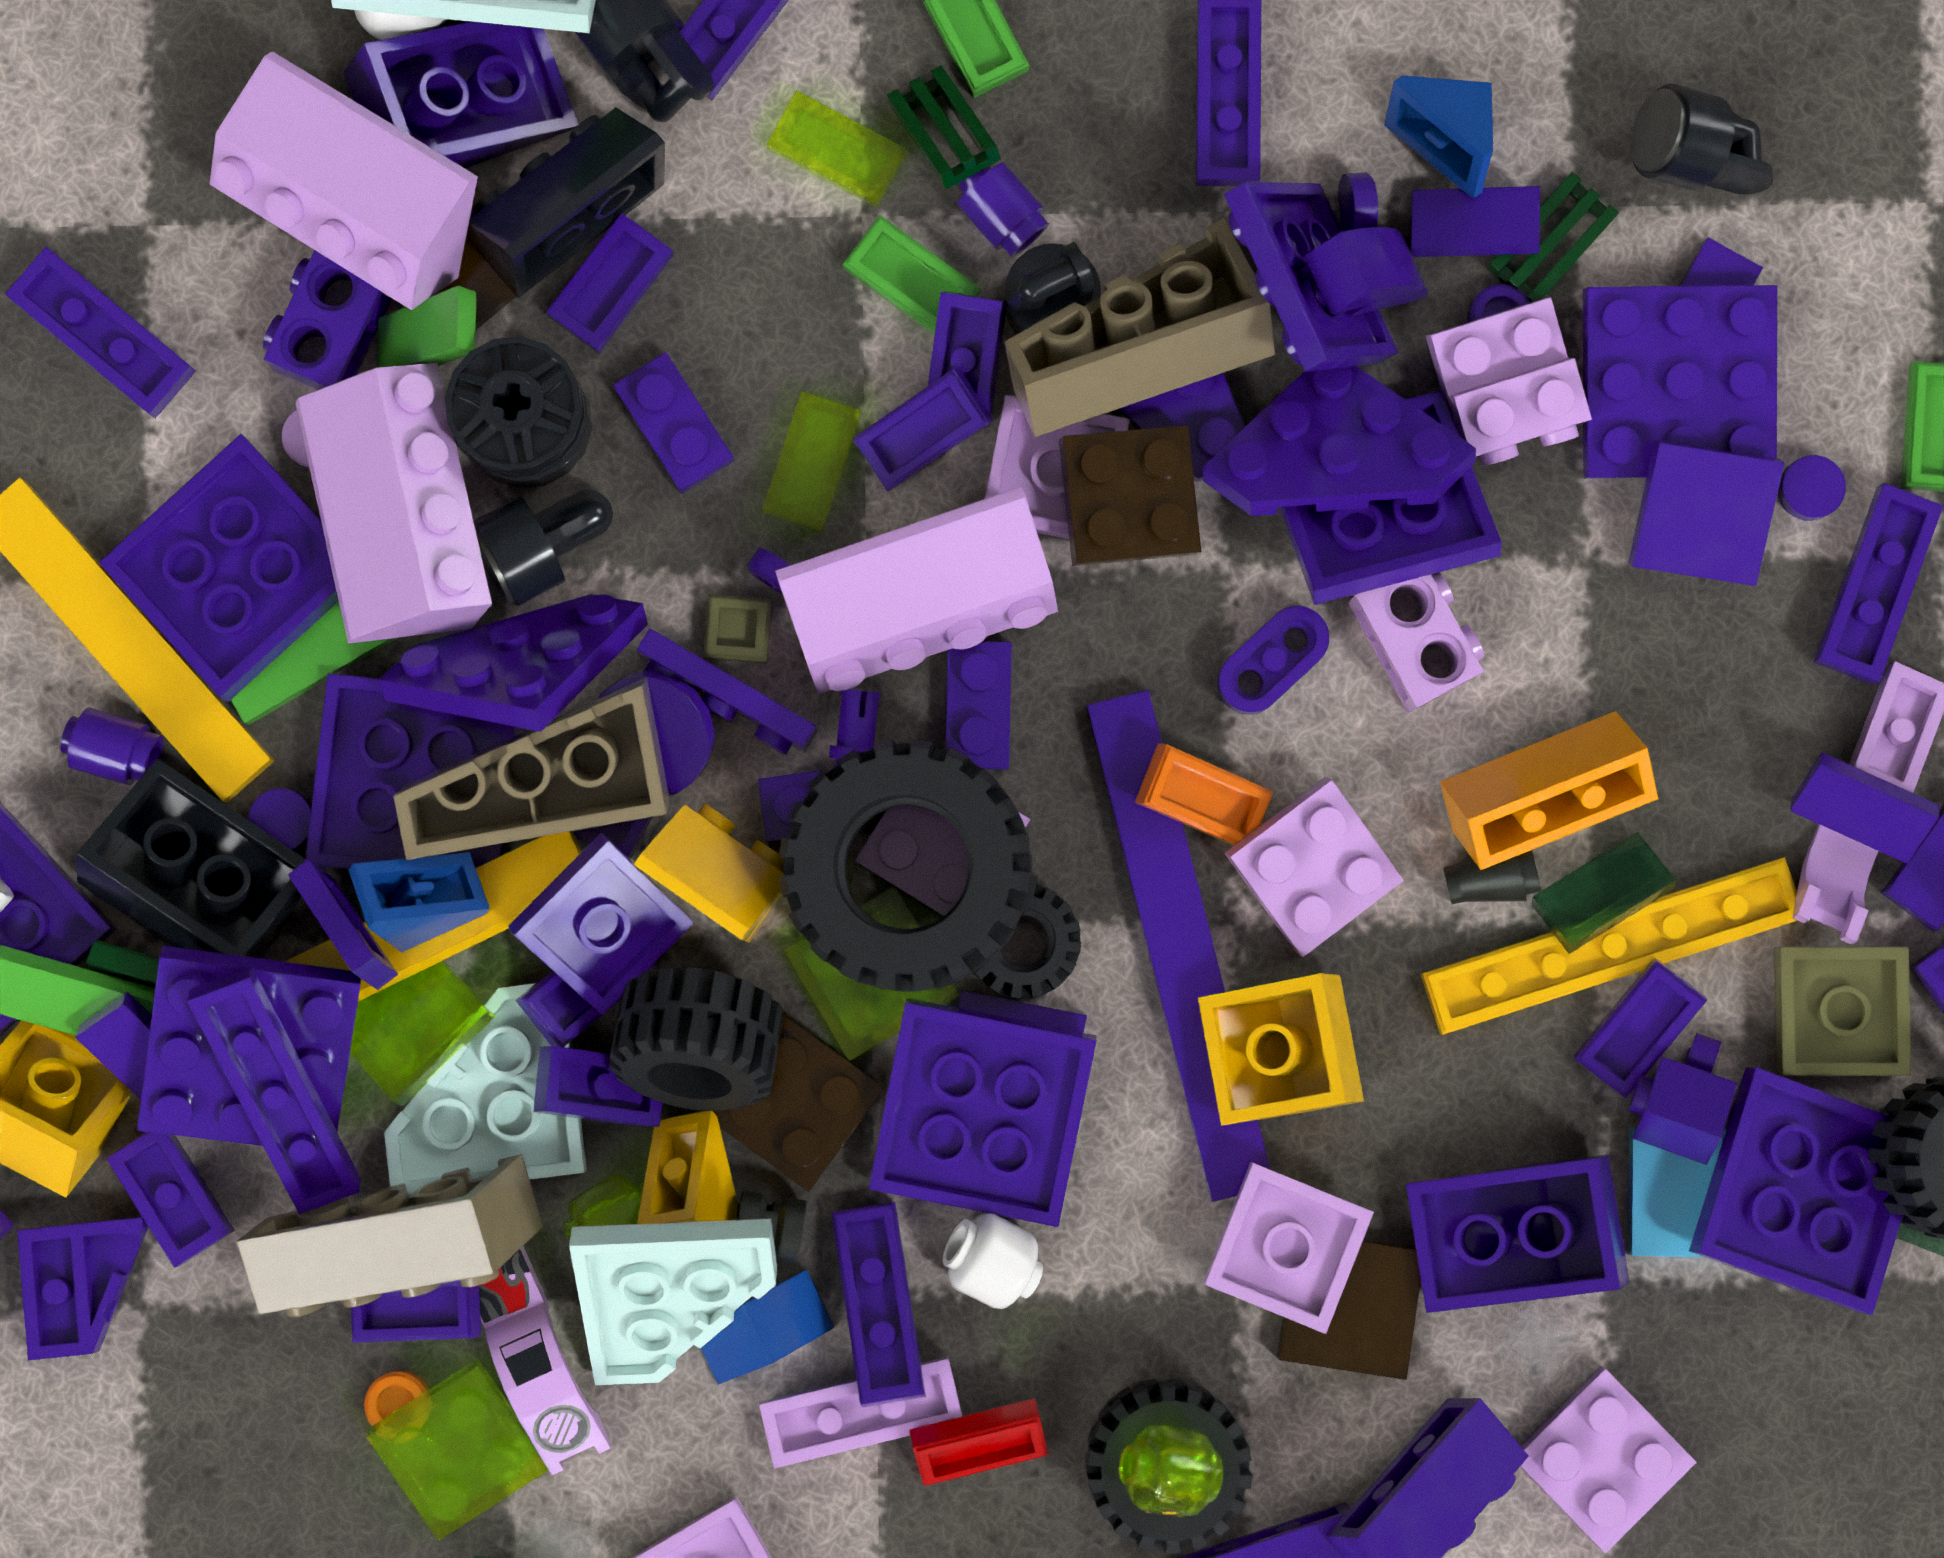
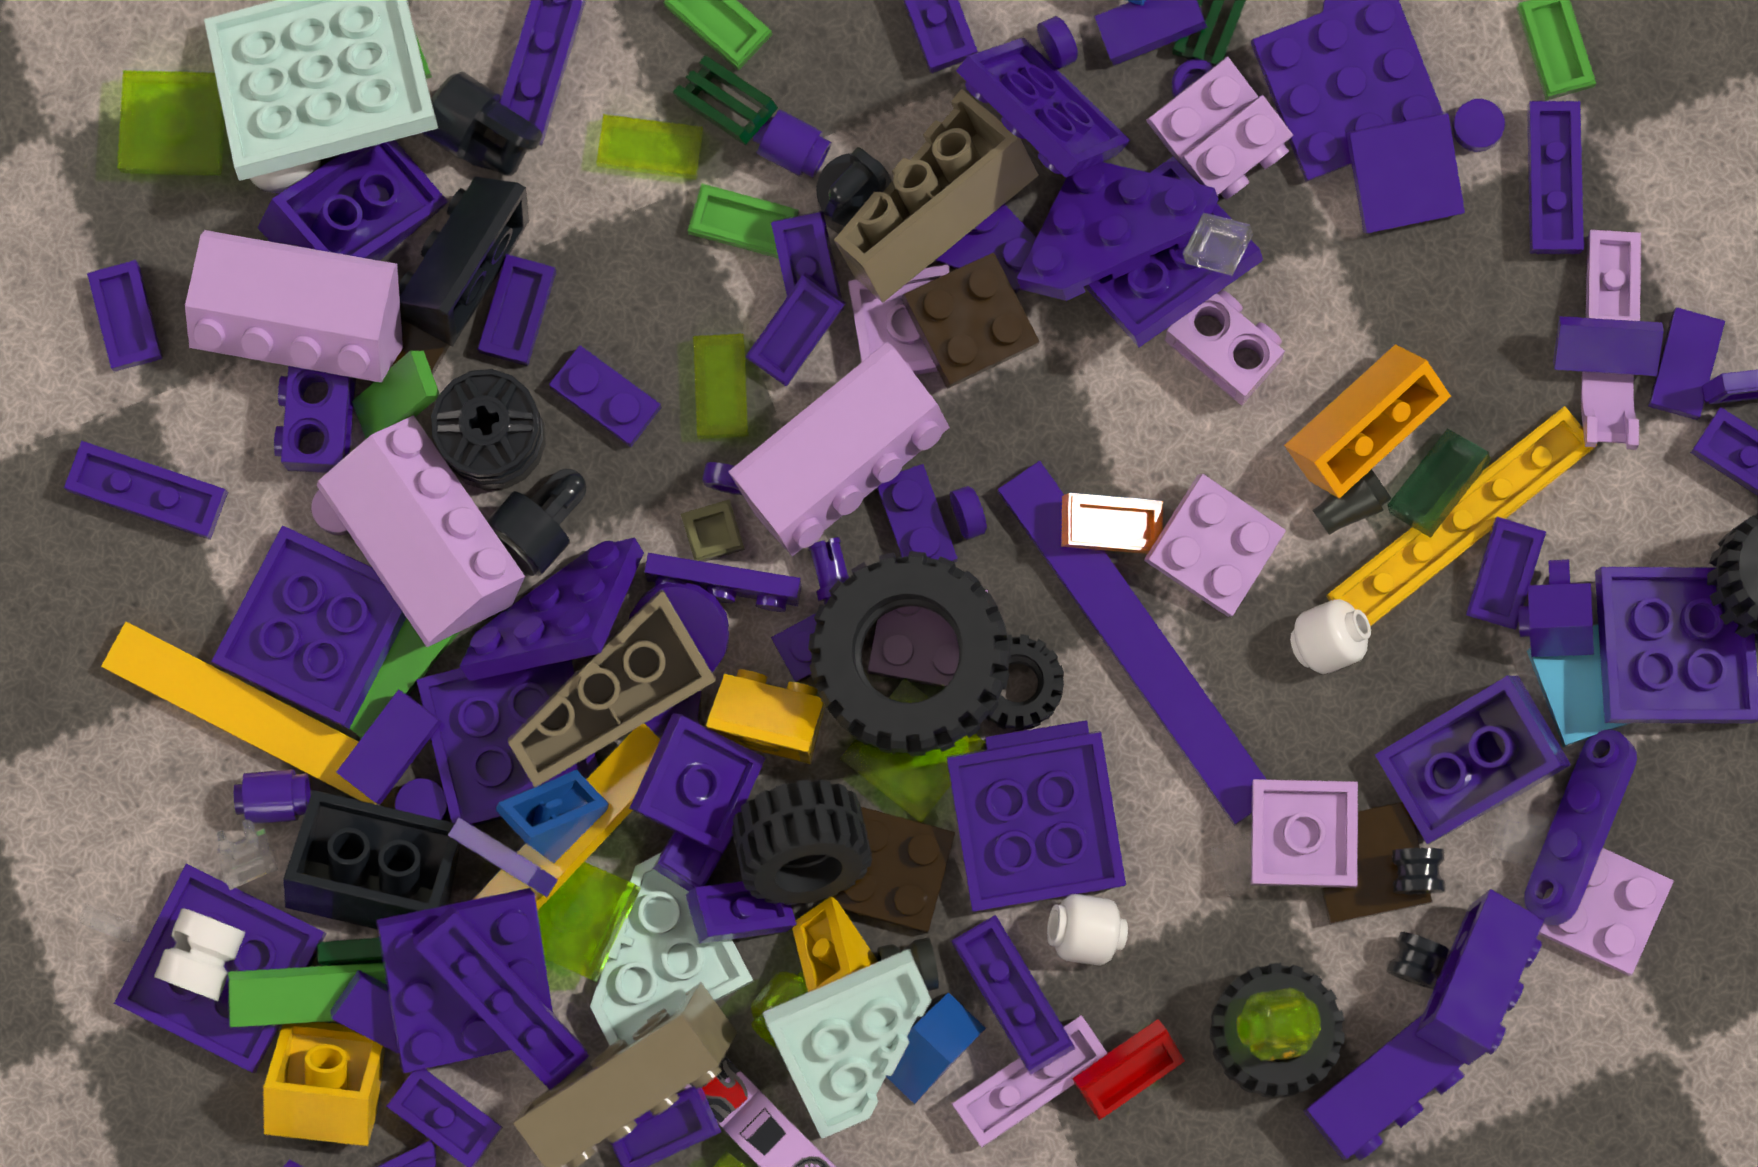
camera: 10 degrees left, 5 degrees down
(53, 807) = (246, 857): none -> clear tile
(154, 118) = (124, 316): none -> dark purple tile
(265, 741) = (389, 747): none -> dark purple tile
(1042, 719) = (968, 512): none -> dark purple tile
(1272, 660) = (1124, 404): dark purple plate -> none
(1280, 1049) = (1242, 688): yellow slope -> none
(1363, 1443) = (1417, 960): none -> black wheel
(1365, 271) = (1082, 88): dark purple slope -> none
(1404, 1343) = (1418, 871): none -> black wheel
(1407, 1027) = (1330, 636): none -> white head
(1454, 517) = (1218, 244): none -> clear tile
(1612, 1361) = (1580, 827): none -> dark purple plate
(1842, 1011) = (1652, 503): olive plate -> none

